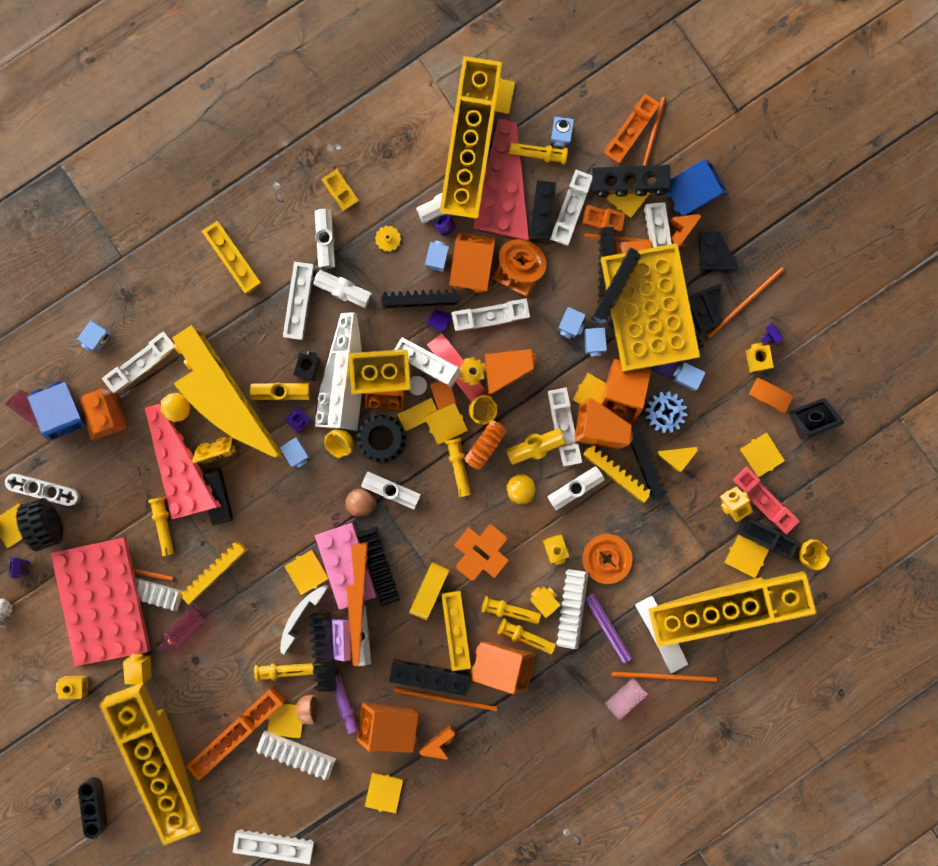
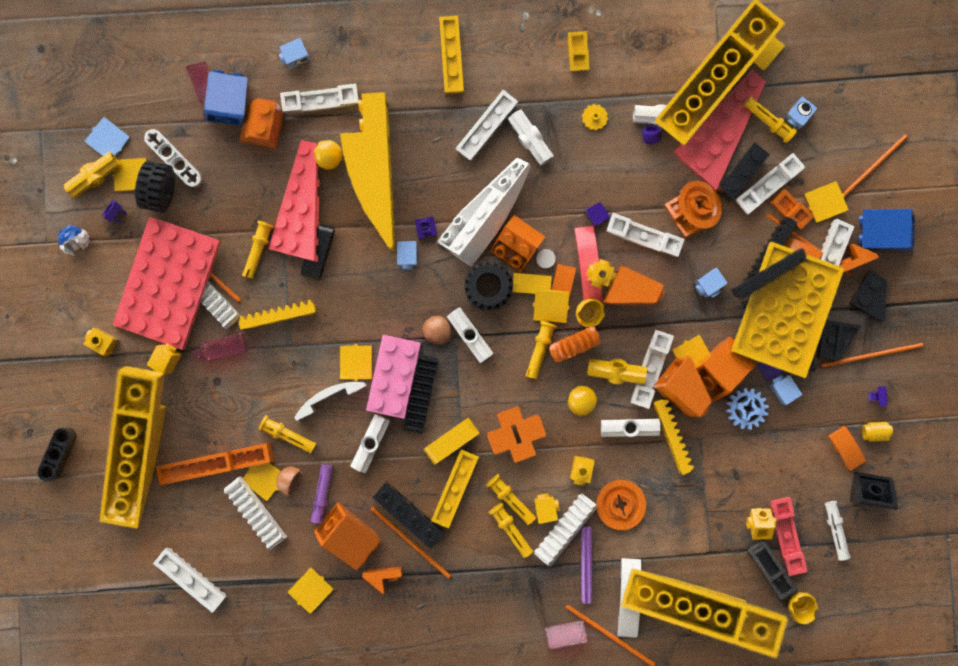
camera: 35 degrees right, 0 degrees up
(206, 451) = (331, 208): yellow hinge -> none
(267, 391) = (414, 188): yellow piece -> none
(307, 374) = (459, 194): black brick -> none
(323, 652) = (331, 439): black gear -> none
(324, 226) = (536, 96): white piece -> none
(339, 443) = (449, 268): yellow hair -> none
(341, 639) = (350, 436): lavender plate -> none
(356, 598) = (387, 409): orange slope -> none
(379, 371) = (521, 226): yellow slope -> none
(419, 300) = (592, 187): black gear -> none
(429, 363) = (566, 243): white gear -> none
(437, 256) = (629, 157): light blue brick -> none
(472, 262) = (656, 180): orange slope -> none
(503, 667) = (476, 544): orange slope -> none
(595, 341) = (721, 311): light blue brick -> none
(602, 175) = (848, 190): black brick -> none
(631, 129) = (863, 146): orange slope -> none
(645, 465) = (702, 444): black gear -> none
(677, 458) = (733, 454): yellow slope -> none
(746, 556) = (743, 574): yellow piece -> none
(755, 365) = (849, 414): yellow brick -> none
(762, 455) = (808, 495): yellow piece -> none
(788, 366) = (877, 431): none -> yellow brick
(799, 465) = (835, 523): none -> white pin

